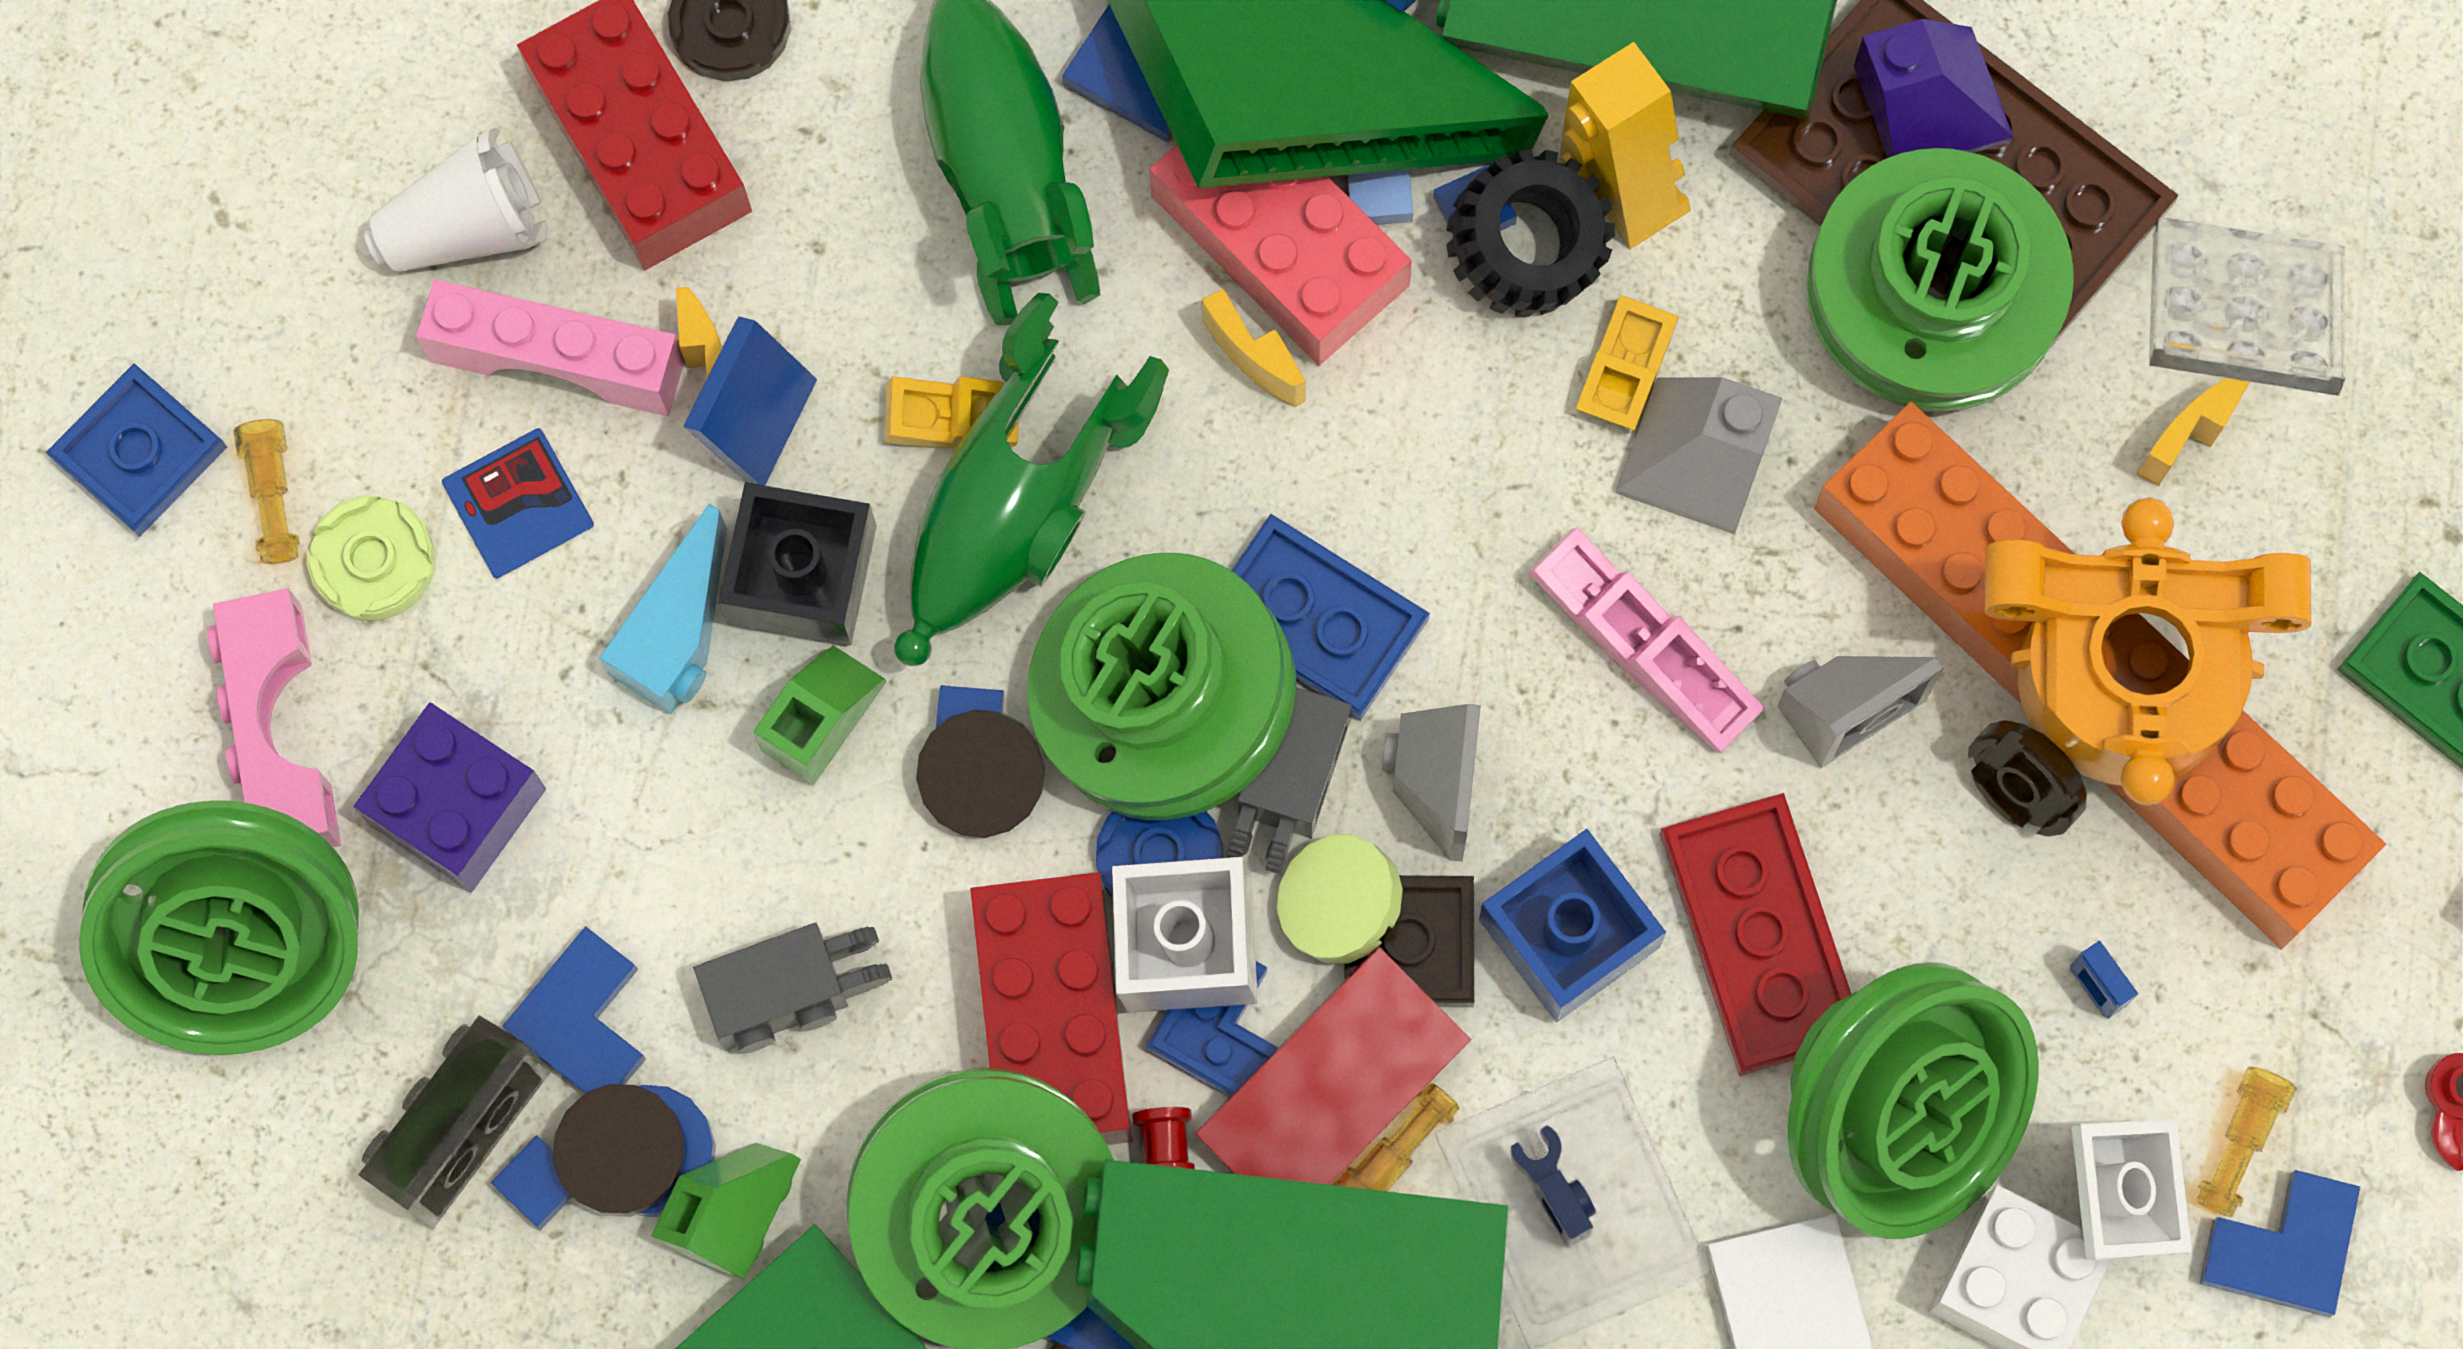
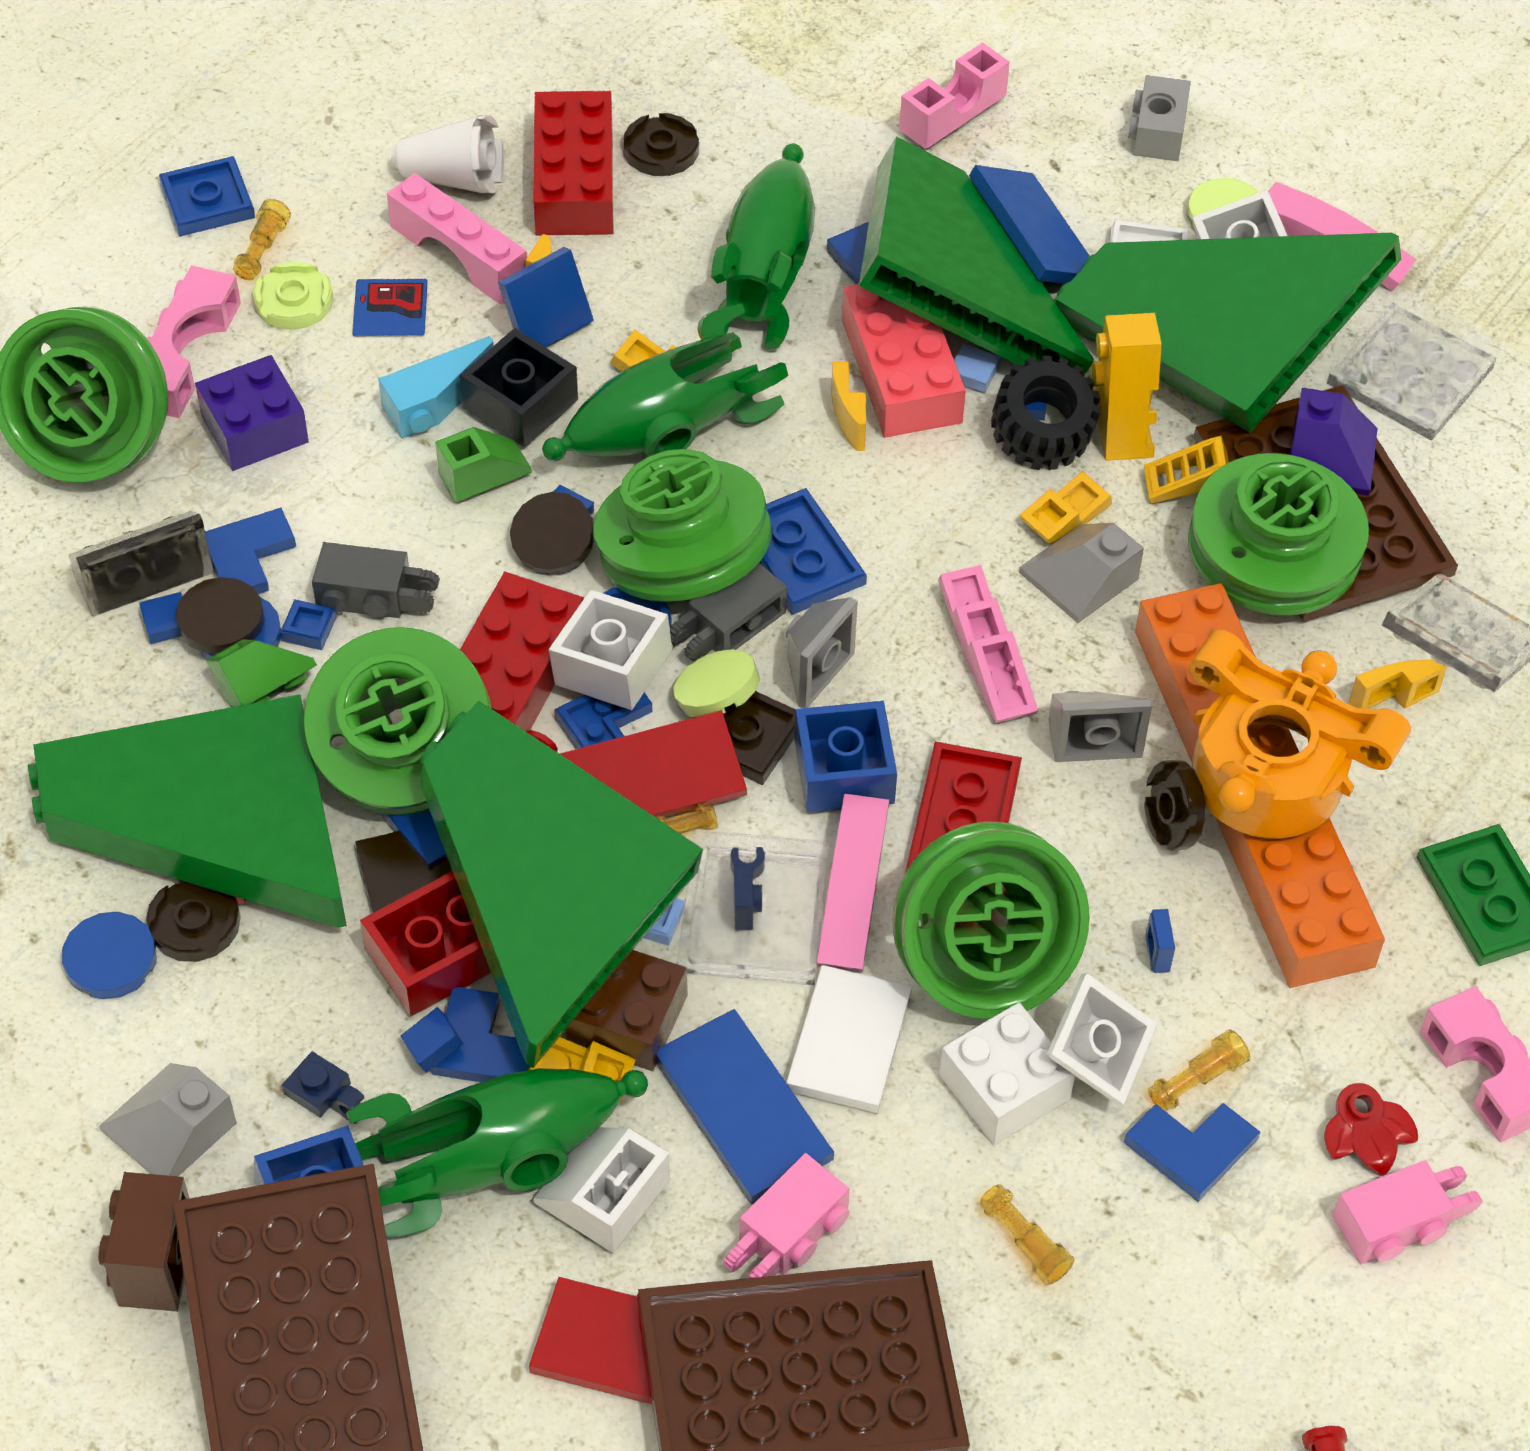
camera: 25 degrees right, 20 degrees down
(736, 1088) = (308, 624): none -> blue tile
(1681, 1102) = (853, 883): none -> bright pink slope
(1786, 179) = (1196, 455): none -> yellow slope

